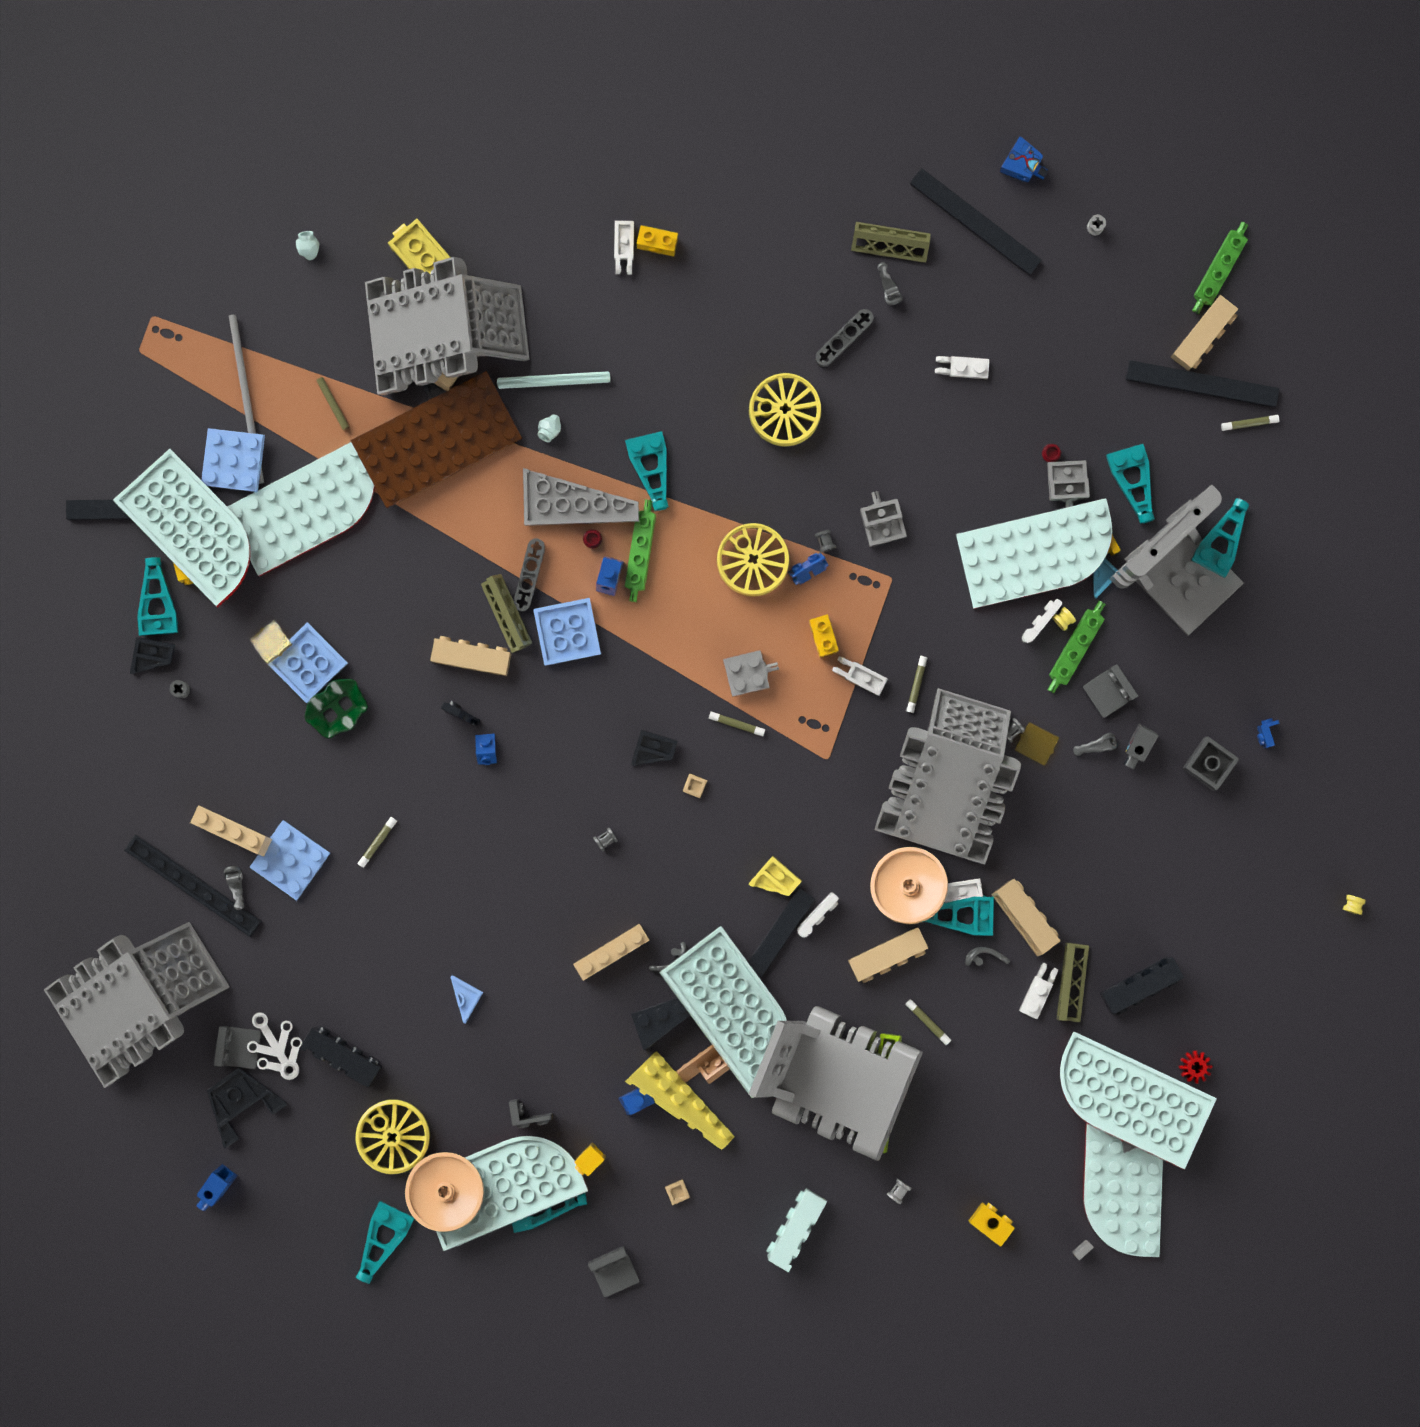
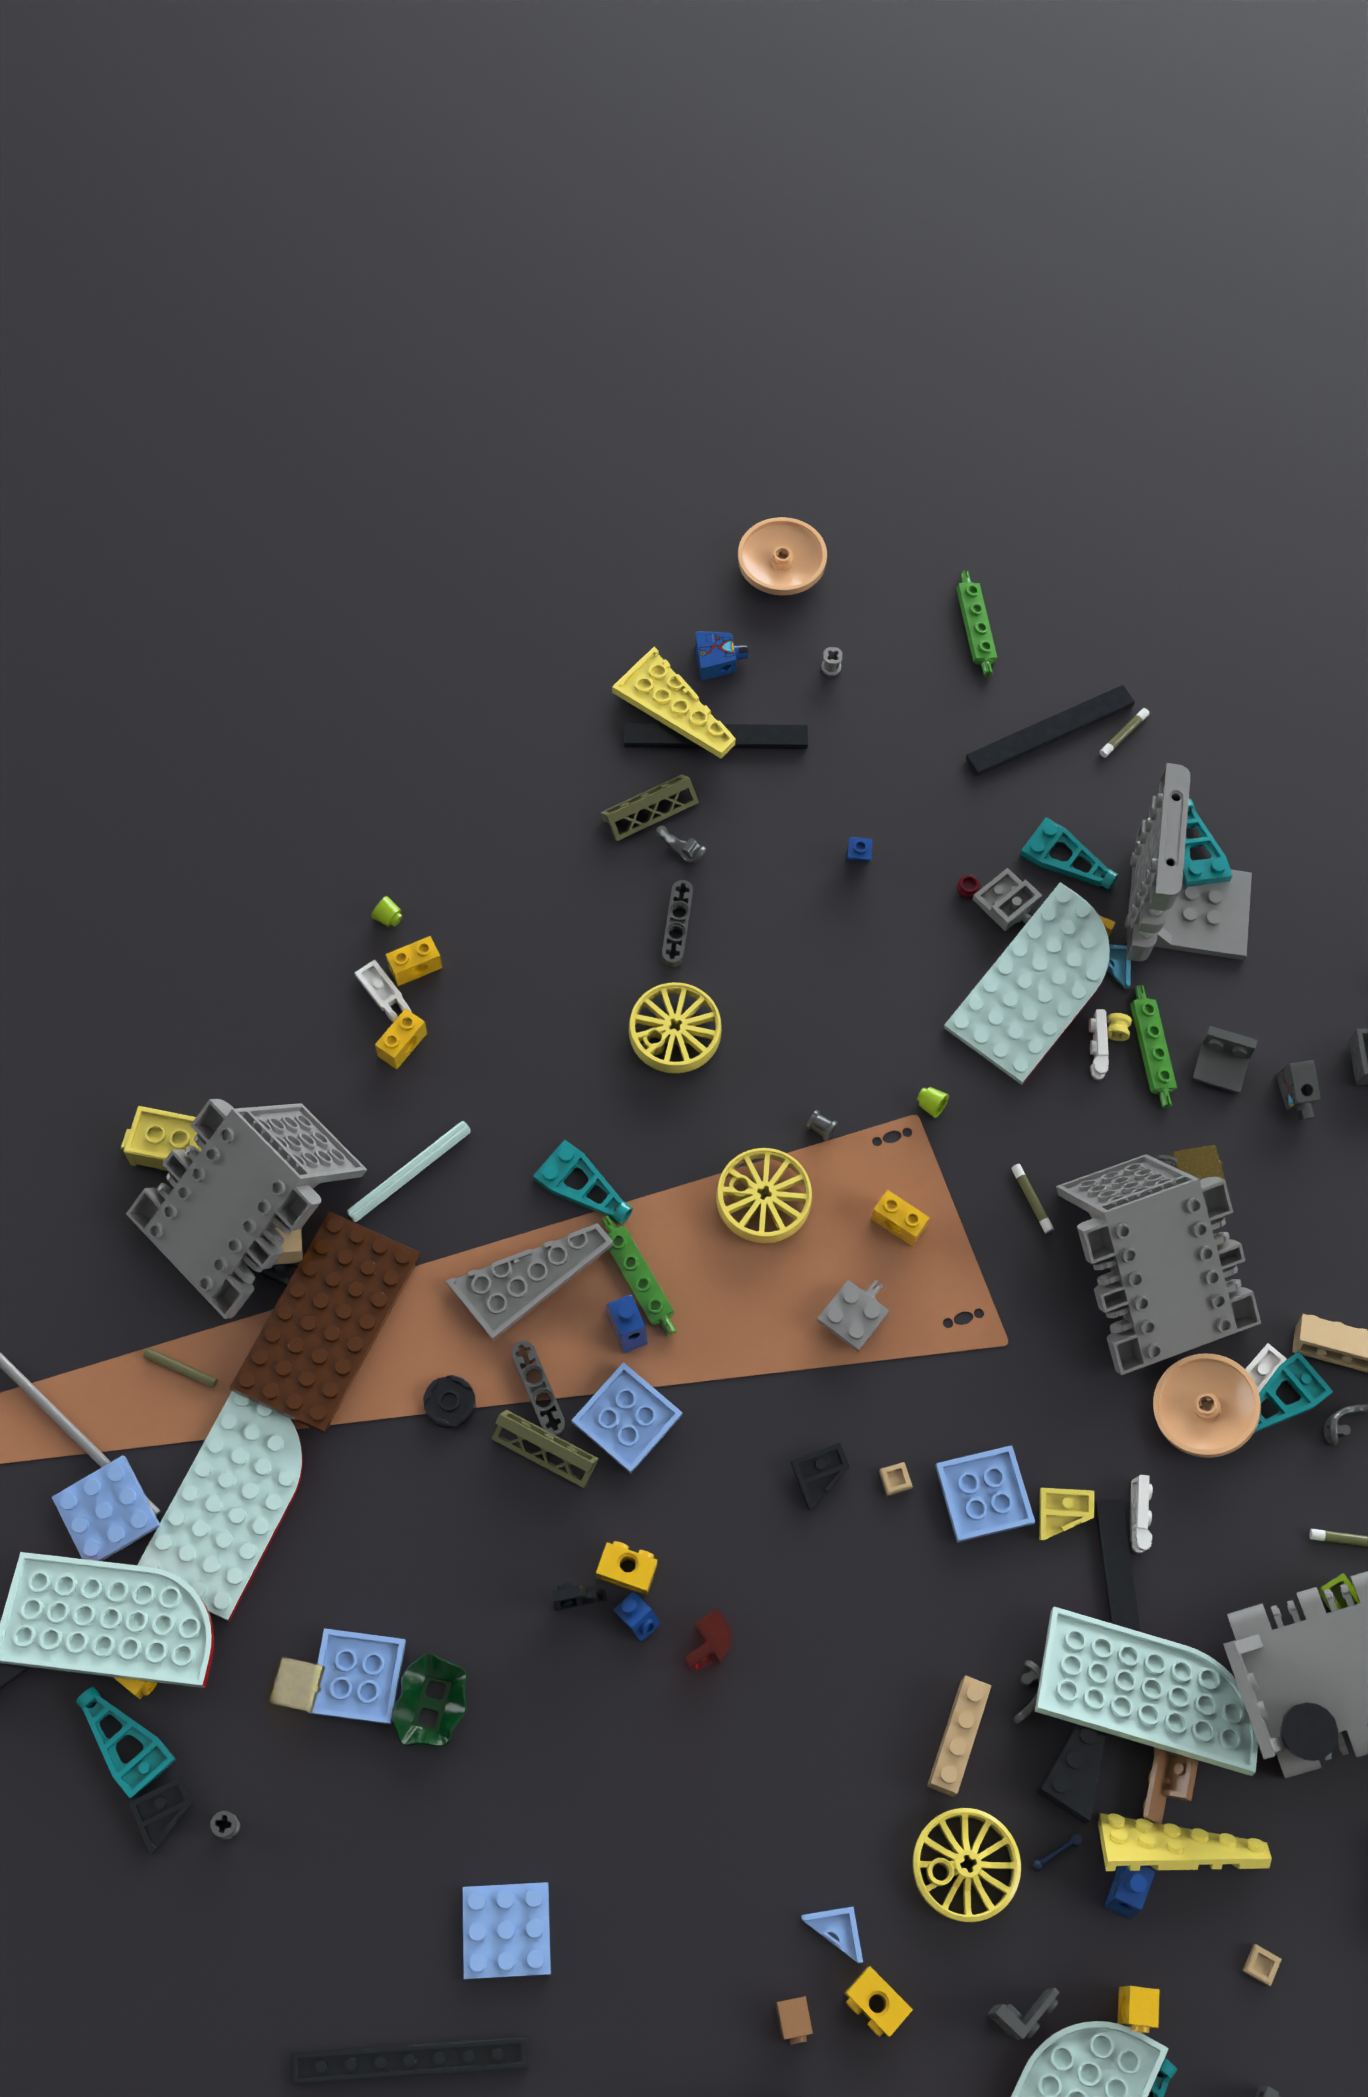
camera: 40 degrees left, 20 degrees down
(231, 830) = (410, 1949): tan brick -> none
(234, 879) = (453, 2006): dark grey piece -> none
(307, 245) = (33, 1222): light aqua rock -> none
(376, 843) = (593, 1825): olive bar -> none
(406, 1022) = (794, 2020): none -> medium nougat brick
(459, 1037) = (894, 2009): none -> yellow brick
(470, 657) = (541, 1525): tan brick -> none
(472, 543) = (449, 1401): none -> black tile
(490, 712) = (637, 1580): none -> yellow brick
(520, 797) = (717, 1639): none -> clear red brick
(549, 428) = (442, 1220): light aqua rock -> none
(551, 1016) = (957, 1856): none -> light yellow piece
(592, 538) = (577, 1300): dark red plate -> none
(605, 839) = (849, 1612): dark grey bush -> none
(610, 288) = (401, 1038): none -> yellow brick
(631, 1053) = (1075, 1840): none -> dark blue hinge
(665, 193) = (387, 912): none -> lime hat
(736, 723) = (885, 1378): olive bar -> none
(738, 834) = (984, 1493): none -> light blue plate
(800, 572) = (829, 1155): blue hinge -> none
(801, 1101) = (1309, 1731): none -> black tile
(862, 676) = (971, 1230): white hinge -> none
(882, 521) = (862, 1064): light grey plate -> none
(888, 954) = (1248, 1498): tan brick -> none
(906, 577) = (932, 1101): none -> lime hat
(963, 168) = (669, 699): none -> light yellow wing
(964, 367) = (816, 869): white hinge -> none
(998, 376) = (859, 849): none -> blue bracket
(1104, 743) = (1261, 1120): dark grey piece -> none
(1127, 120) = (782, 556): none -> light nougat dish
(1205, 331) = (1014, 684): tan brick -> none

